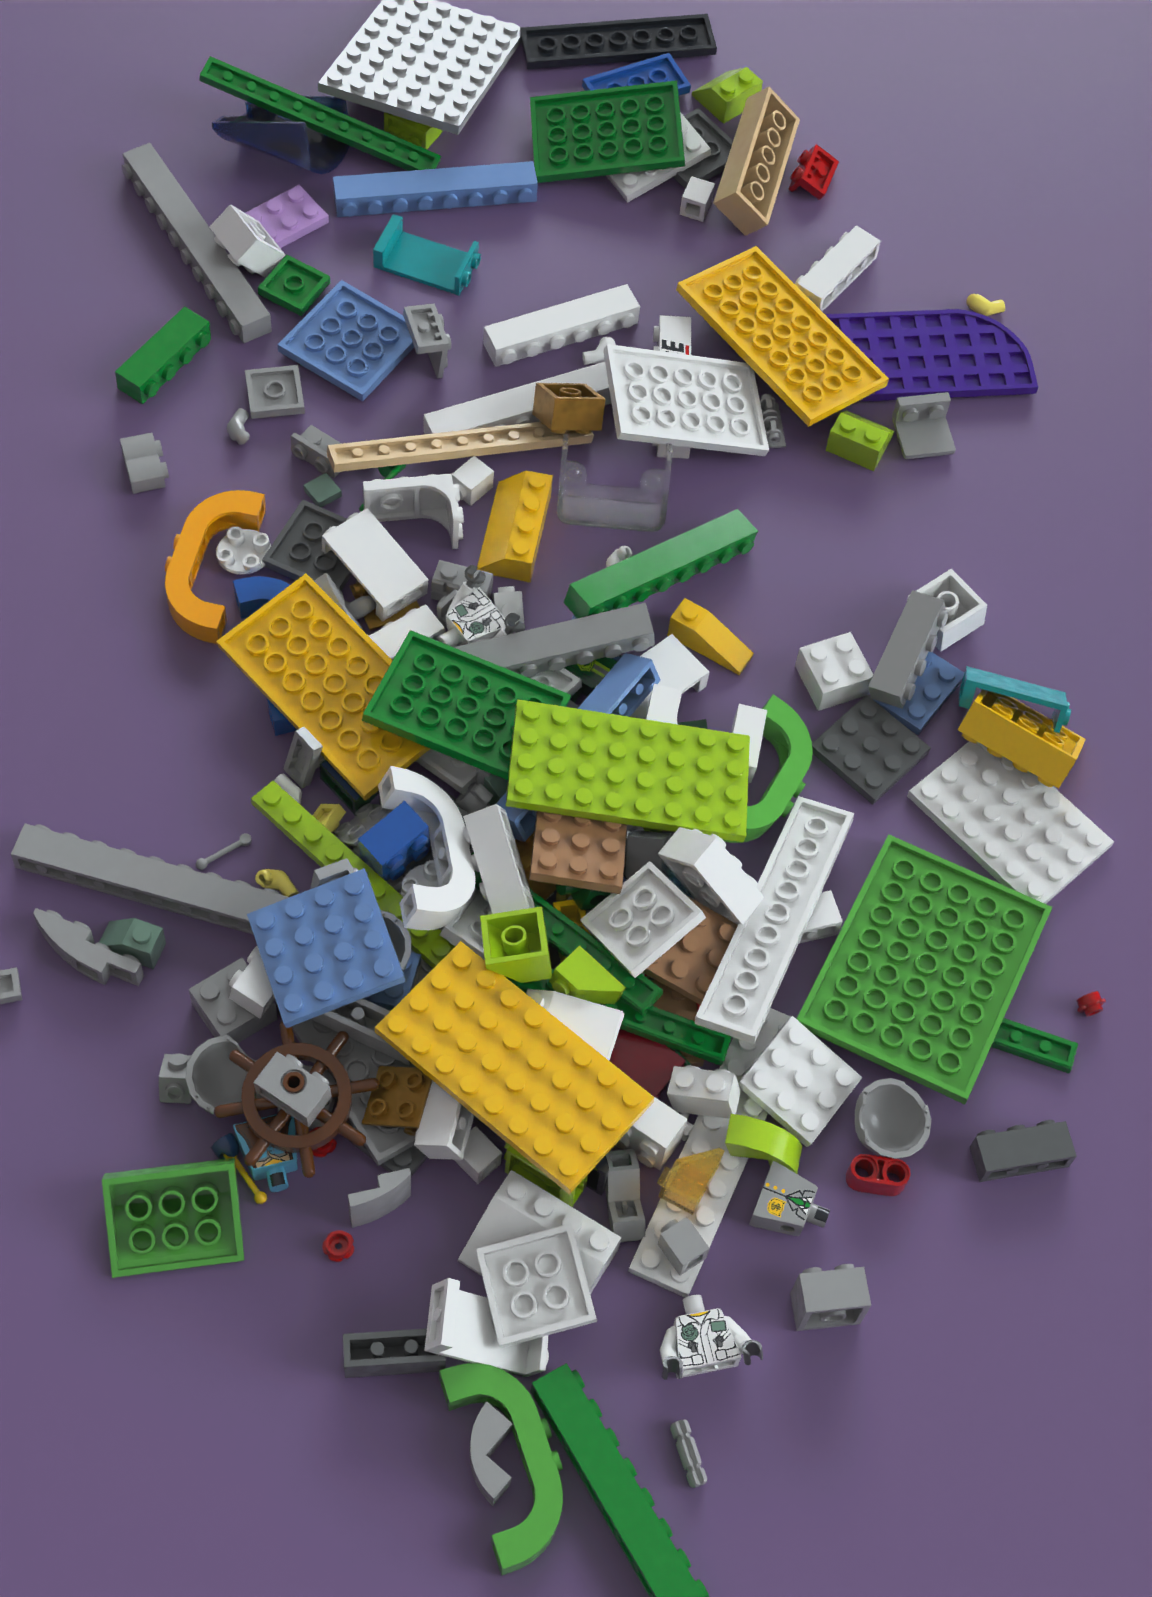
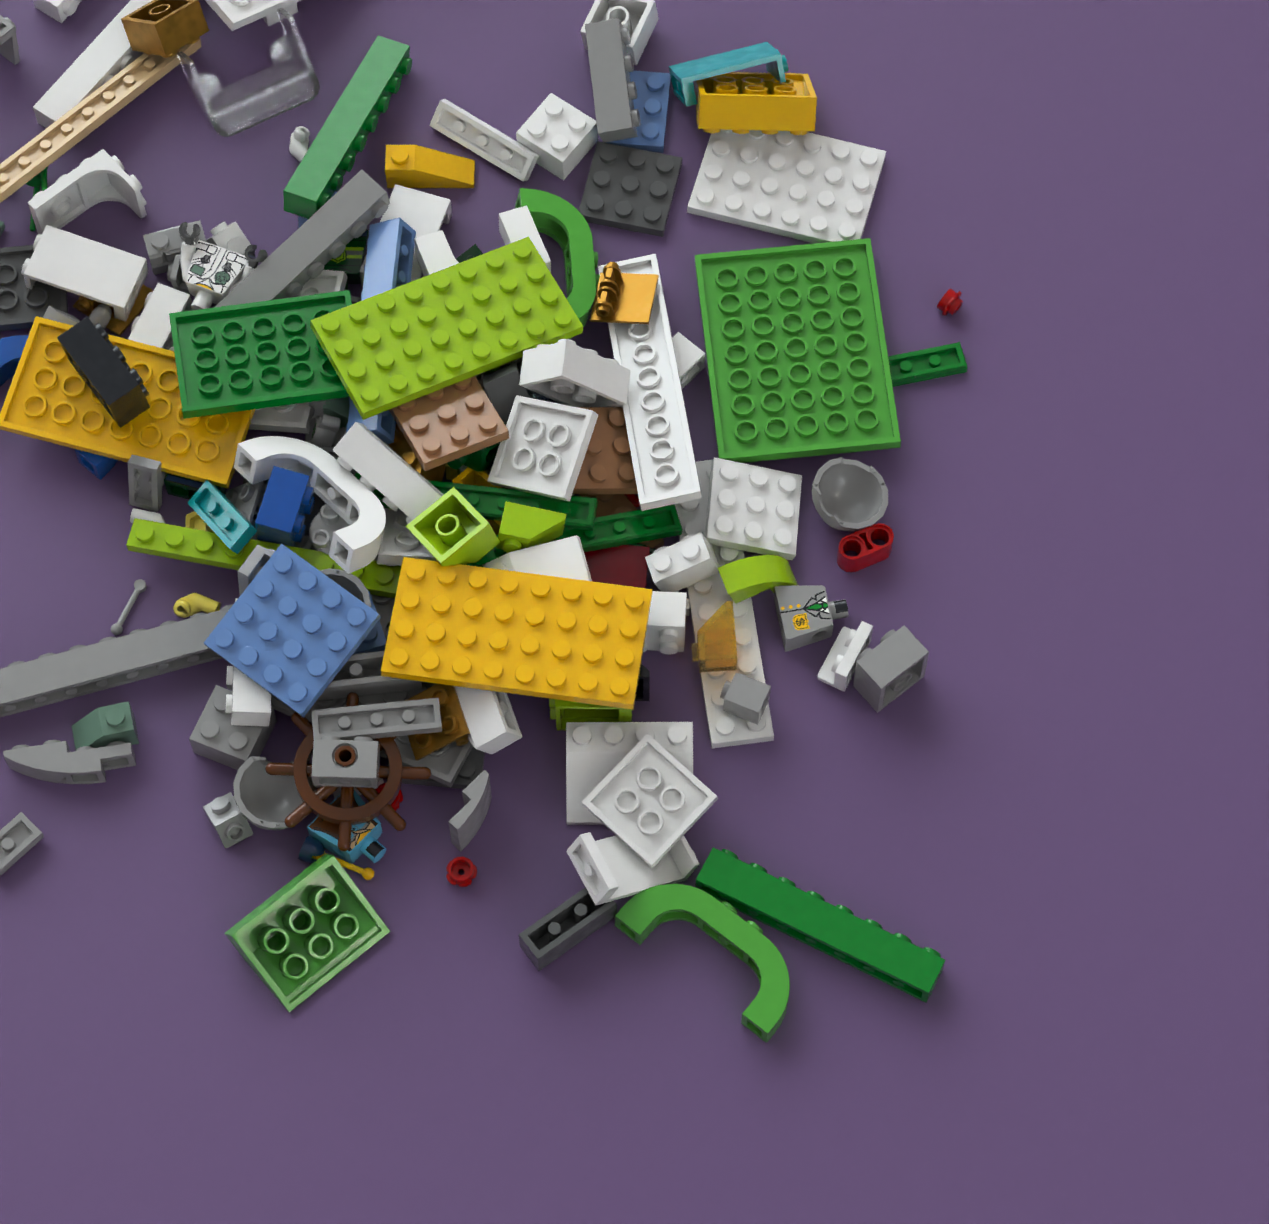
camera: 25 degrees left, 5 degrees up
(324, 645) = (105, 371): none -> black brick
(341, 820) = (222, 517): none -> teal plate
(347, 1068) = (378, 720): none -> light grey plate
(473, 480) = (119, 140): white brick -> none
(479, 1156) = (533, 729): white brick -> none
(486, 1436) = (684, 945): light grey brick -> none
(516, 525) = (186, 164): yellow slope -> none
(623, 1195) = (669, 690): light grey brick -> none
(688, 1453) = (853, 859): light grey axle -> none
(704, 1342) = (812, 764): white torso -> none
(771, 641) = (484, 140): none -> white plate
(801, 833) = (623, 296): none -> hinge
(806, 1254) = (841, 660): none -> white bracket
(1022, 1150) = (968, 457): dark grey brick -> none

